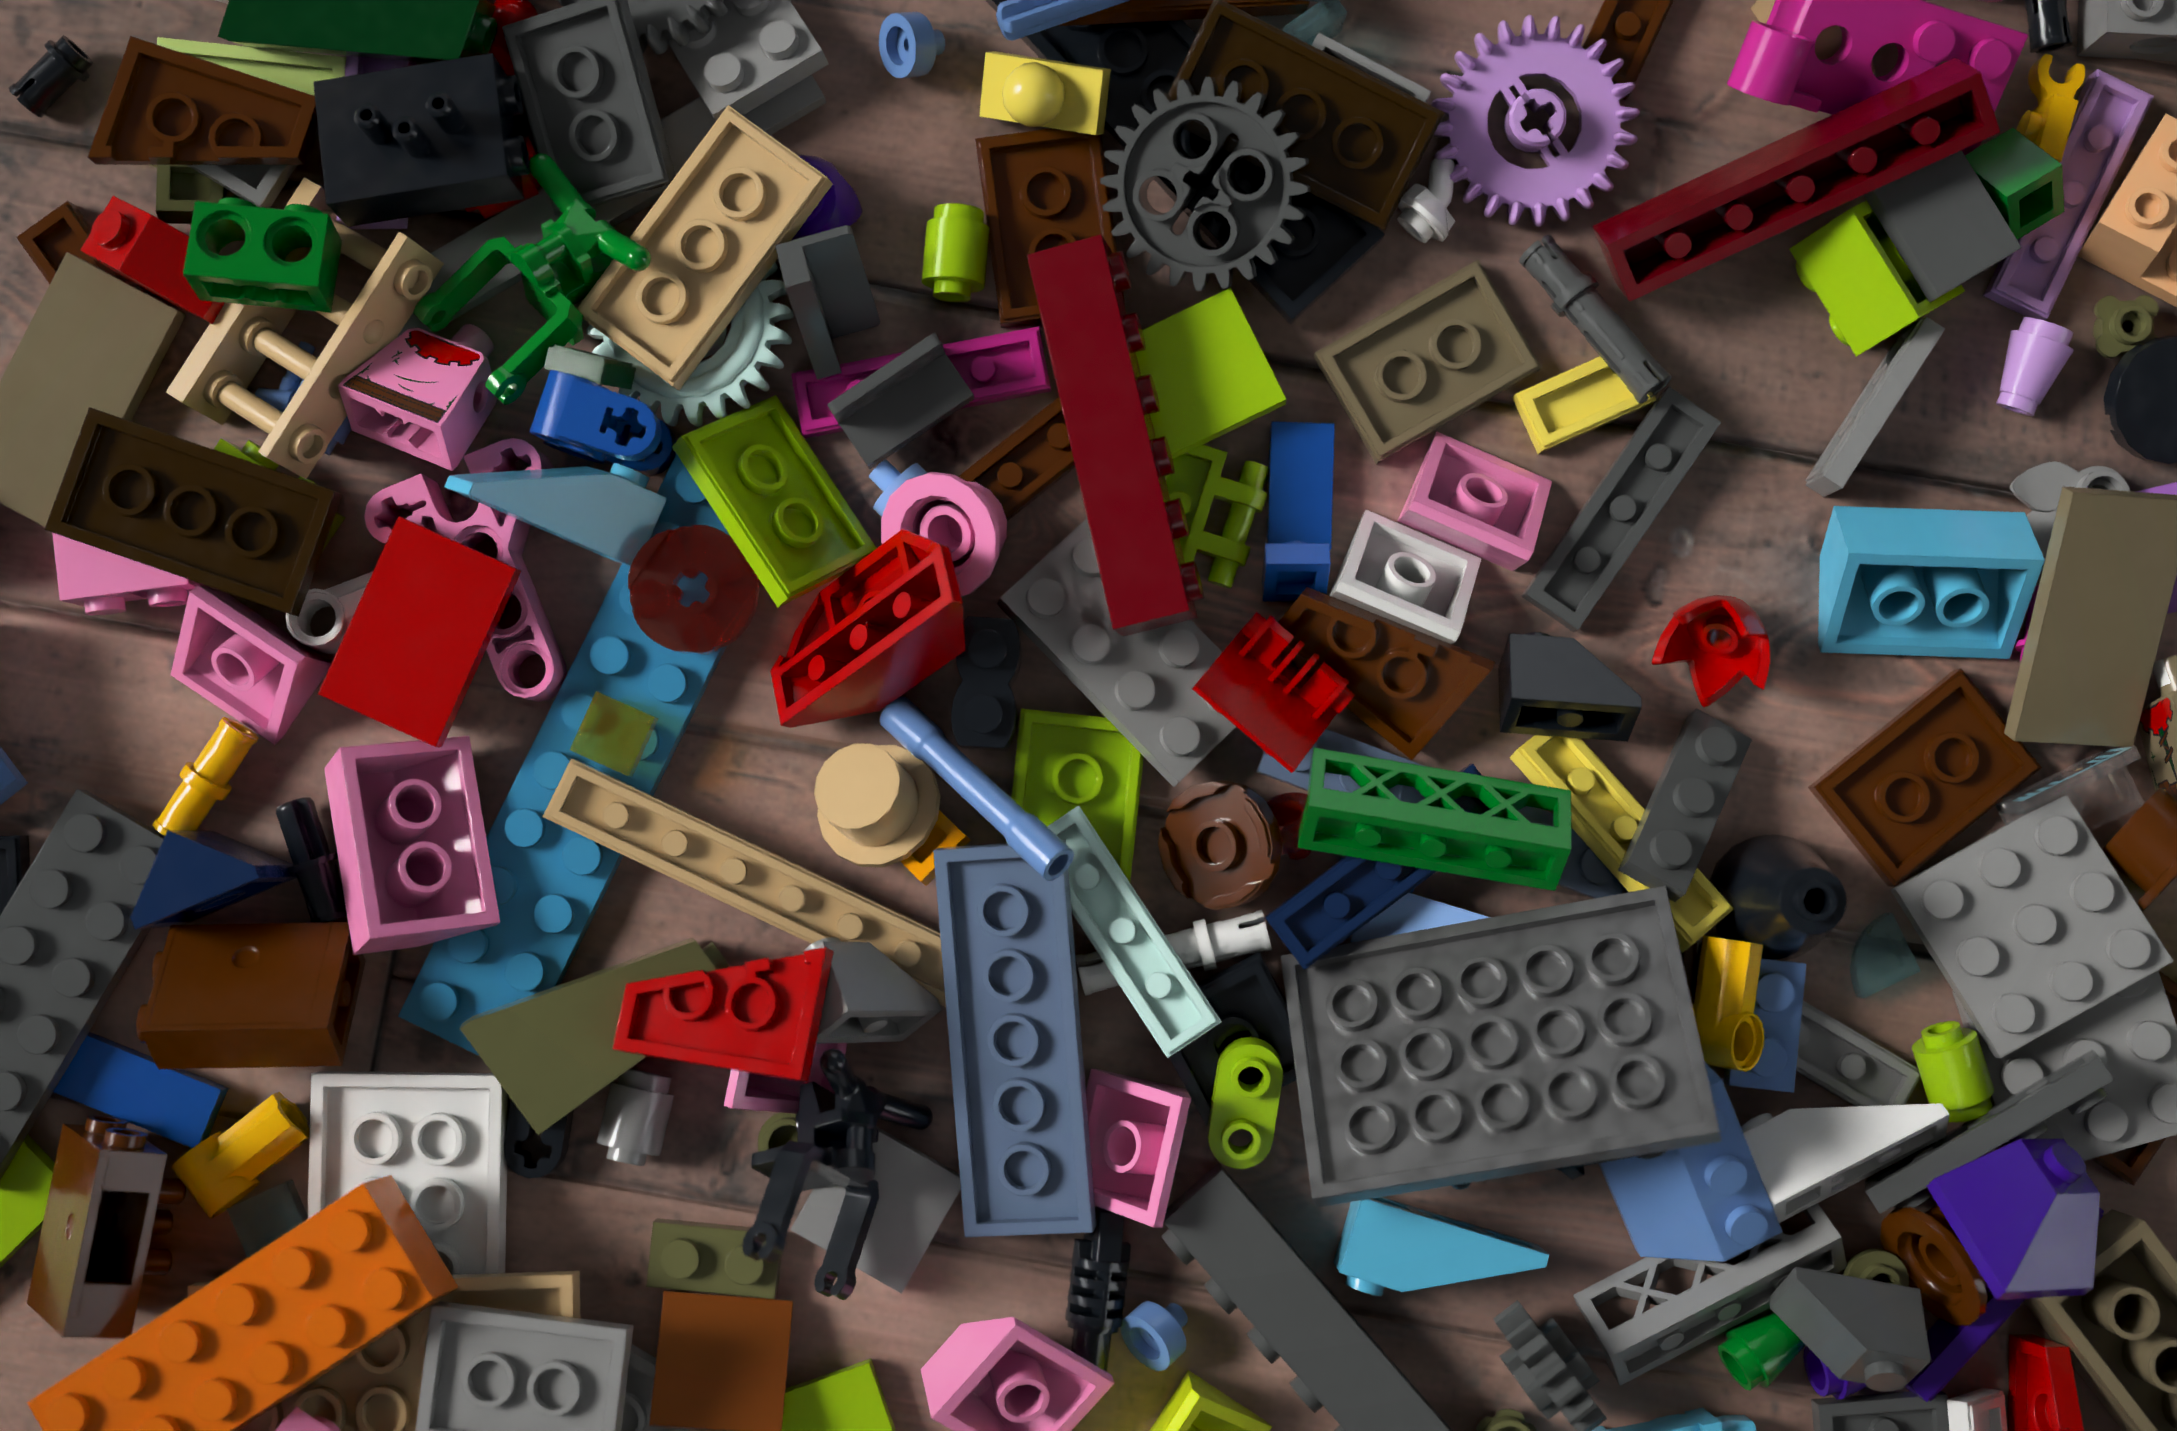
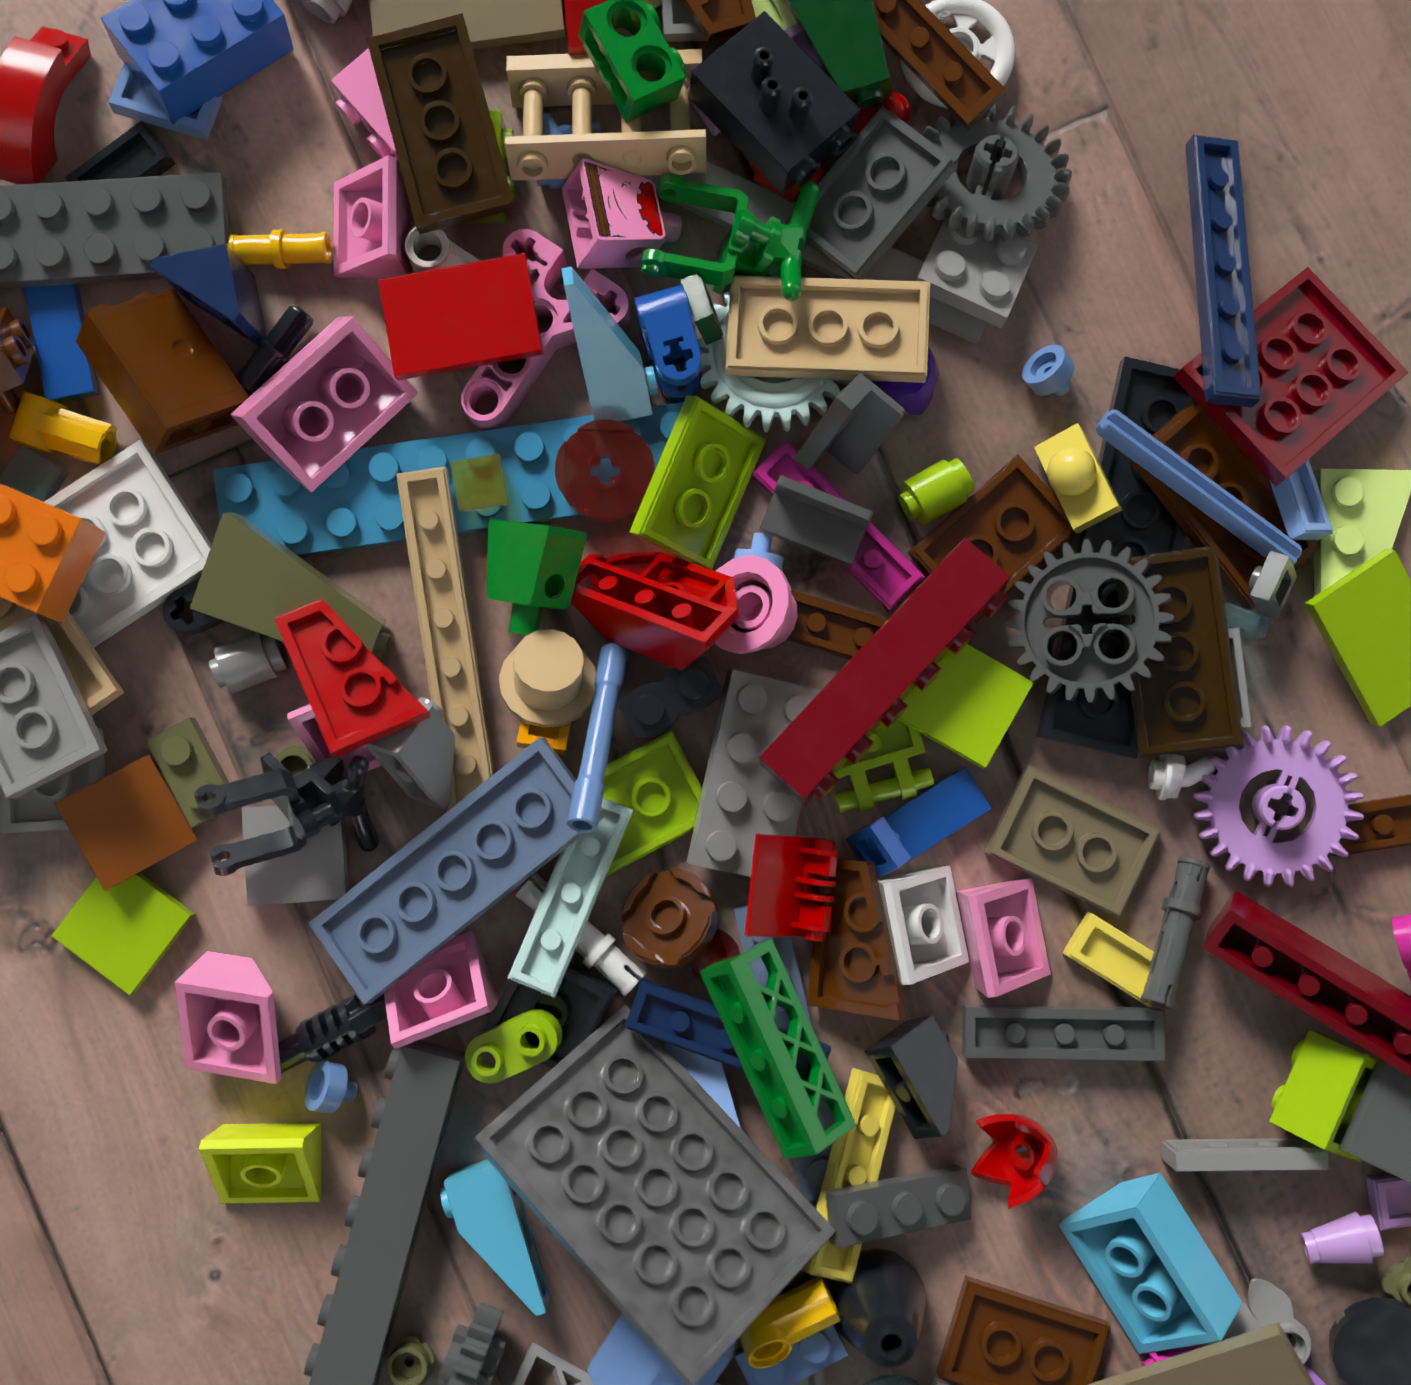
camera: 55 degrees right, 0 degrees up
(745, 739) = (532, 569): none -> green torso

